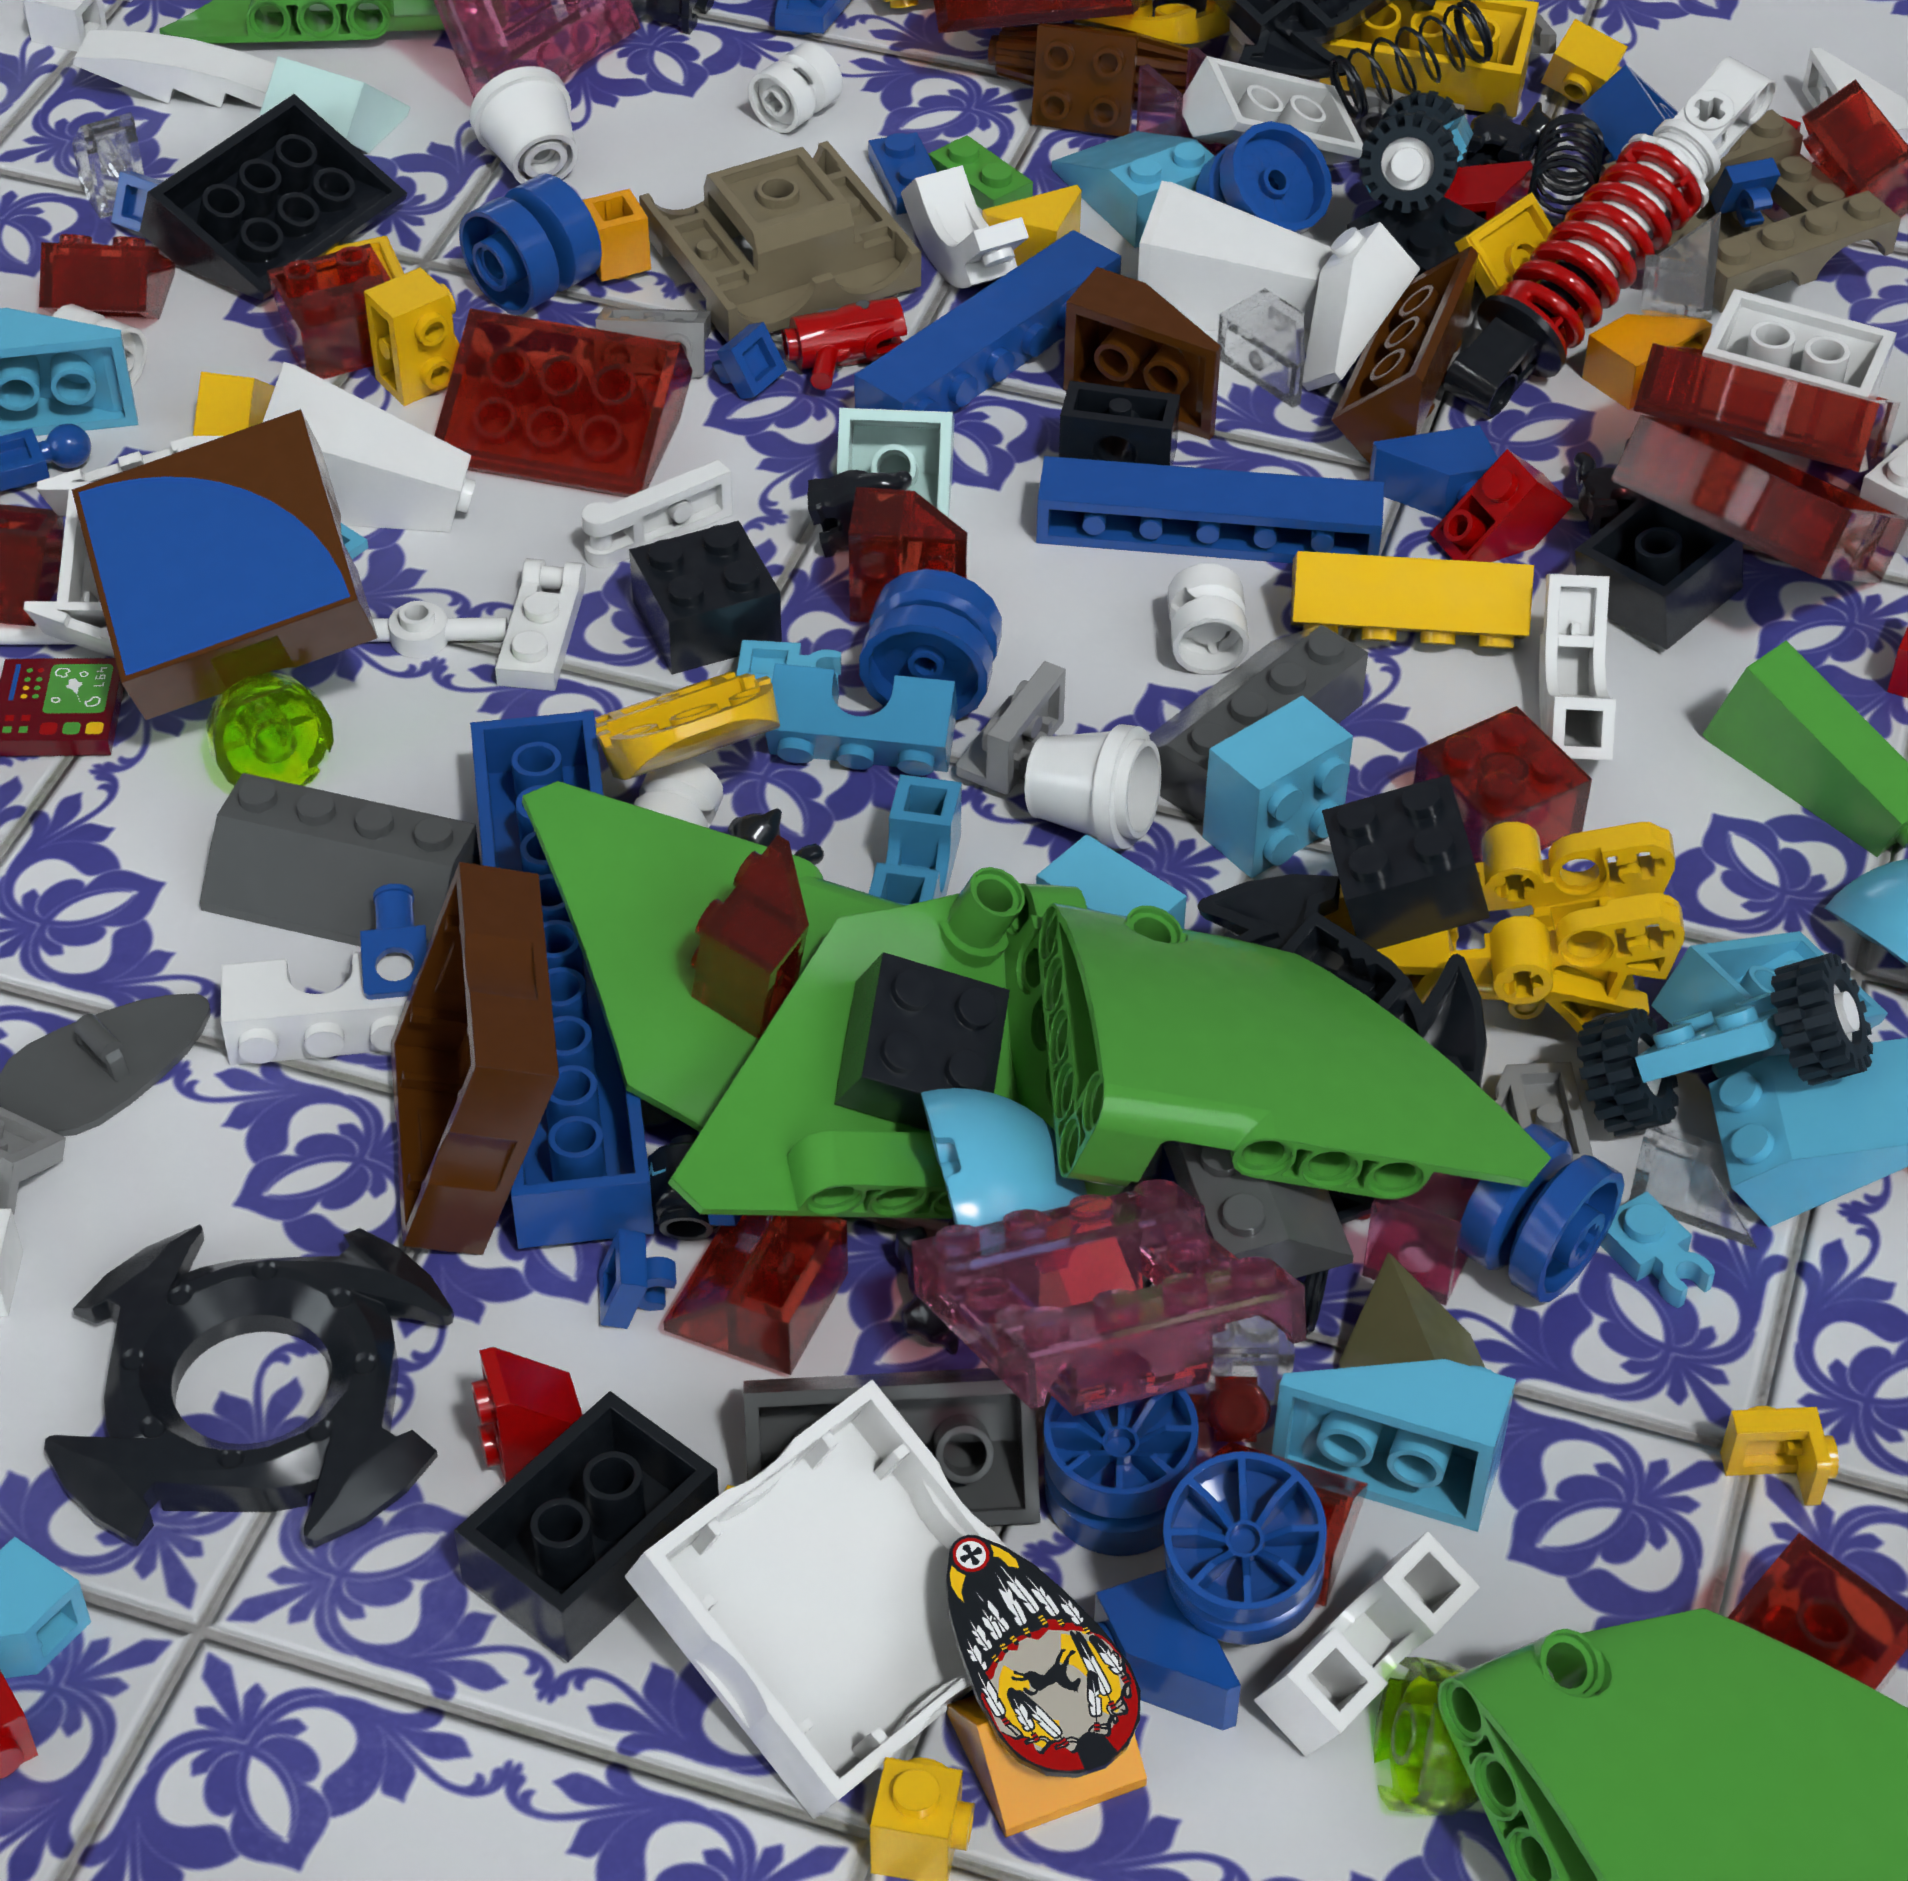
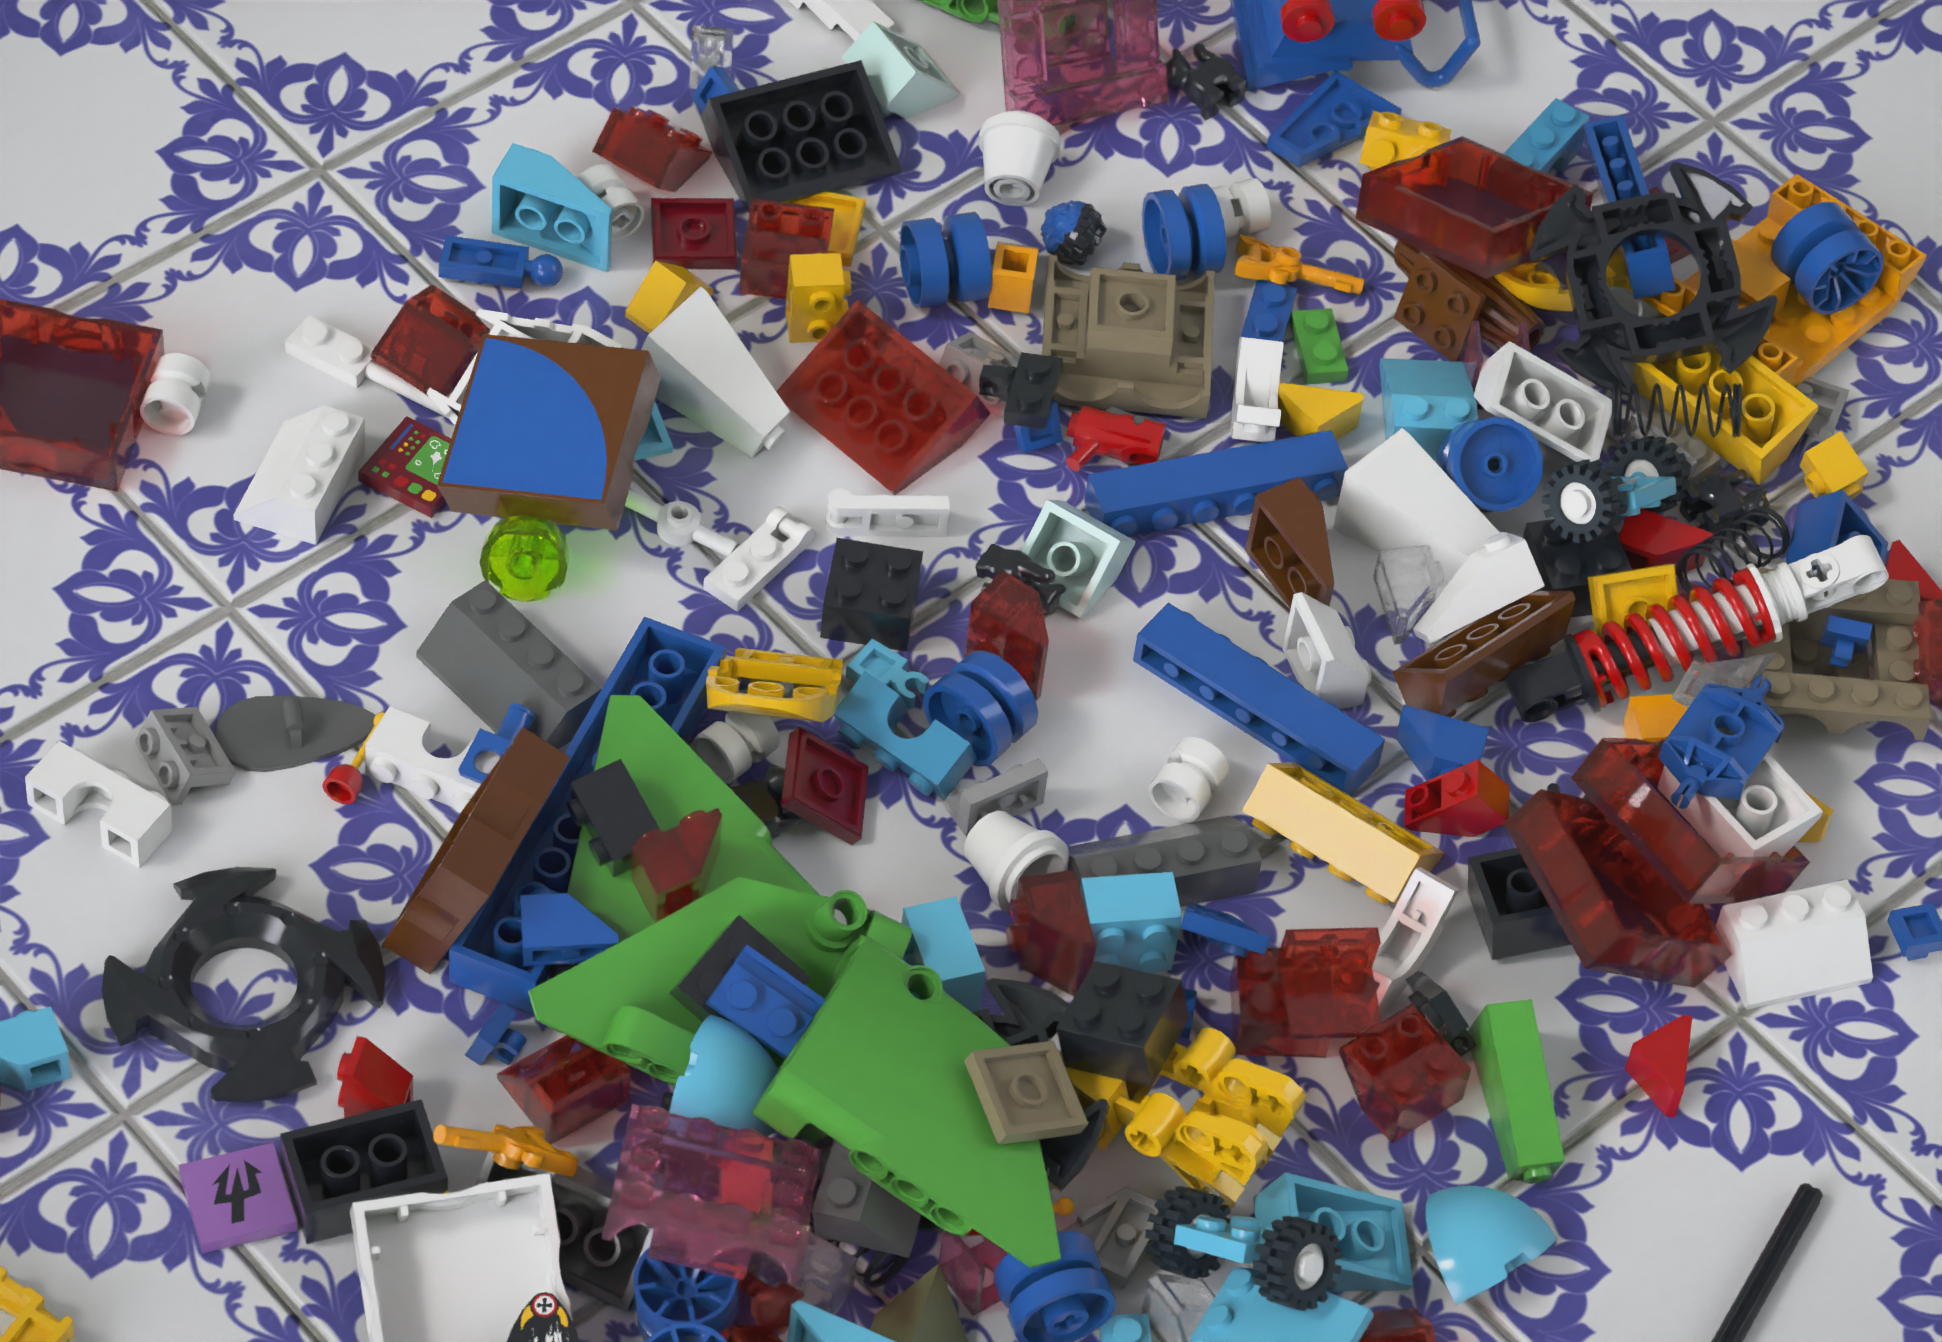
camera: 25 degrees right, 5 degrees up
(213, 339) = (694, 232): none -> dark red tile
(215, 1083) = (345, 780): none -> red hinge
(433, 1653) = (237, 1198): none -> medium lavender tile
(630, 926) = (612, 814): none -> black brick
(644, 165) = (1072, 231): none -> piece
(648, 1097) = (560, 930): none -> blue slope
(721, 315) = (1026, 389): none -> black hinge
(766, 111) = (1184, 231): none -> blue wheel
(782, 1382) = (511, 1147): none -> light orange piece
(813, 809) = (825, 786): none -> dark red tile
(891, 116) = (1283, 264): none -> light orange piece
(920, 841) = (878, 843): dark azure arch -> none
(982, 1040) = (765, 1001): none -> blue plate
(1119, 424) = (1239, 606): black brick -> none
(1206, 827) = (1052, 930): none -> clear red slope
(1241, 433) = (1324, 653): none -> white slope
(1375, 984) = (1026, 1092): none -> dark tan plate
(1396, 732) = (1224, 930): none -> blue wing
(1562, 731) = (1330, 982): none -> clear red bracket
(1683, 708) = (1440, 1011): none -> black hinge
(1696, 789) = (1404, 1073): none -> clear red slope
(1747, 309) = (1717, 762): none -> blue plate

